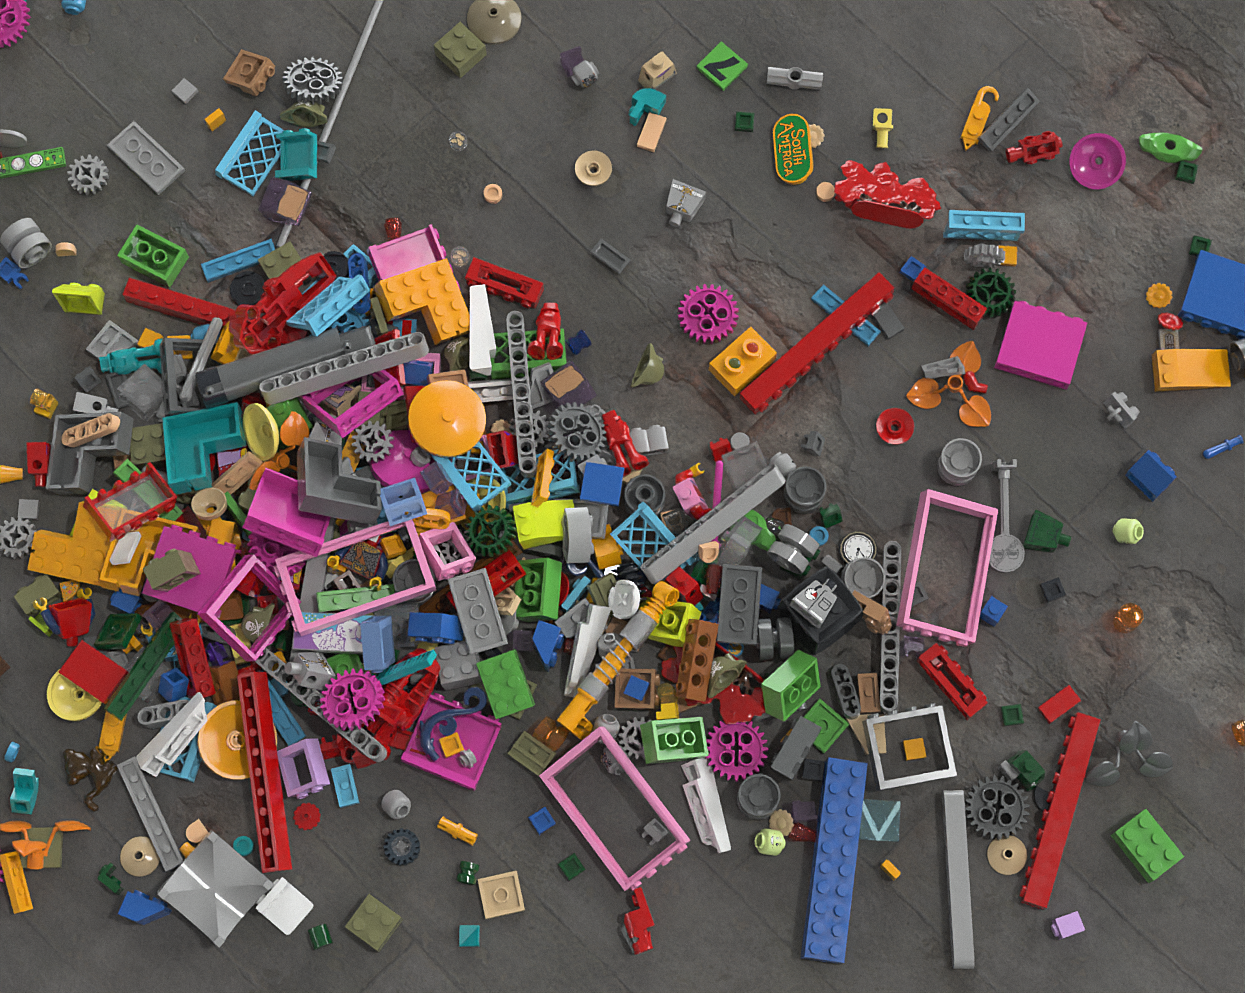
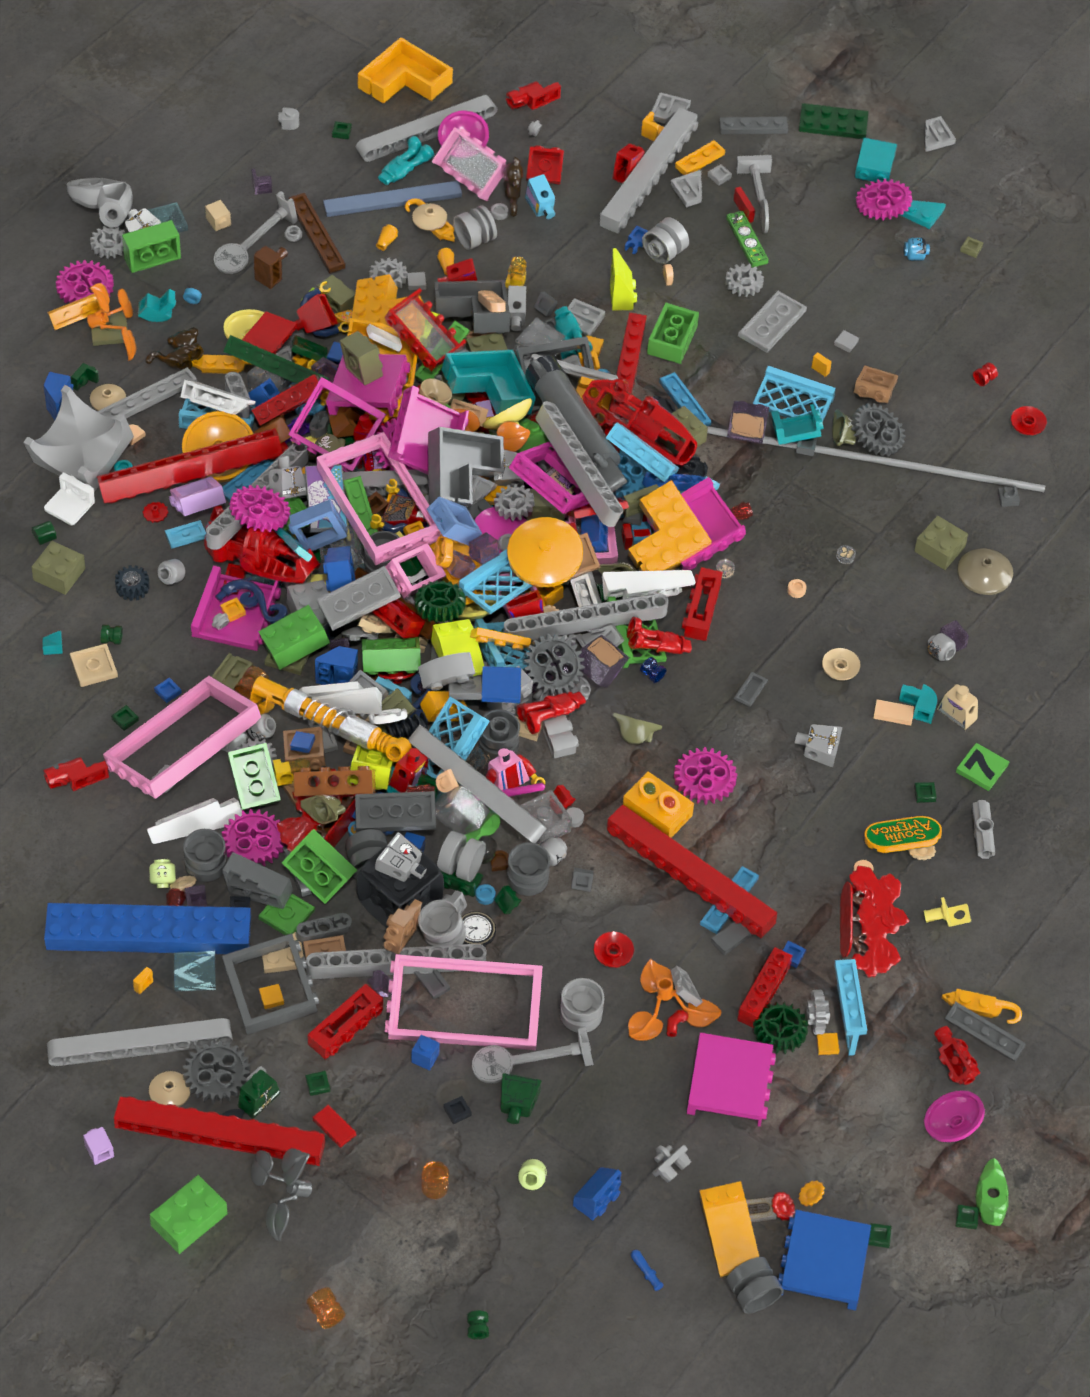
camera: 80 degrees right, 20 degrees down
(457, 831) = (151, 623): light orange pin -> none

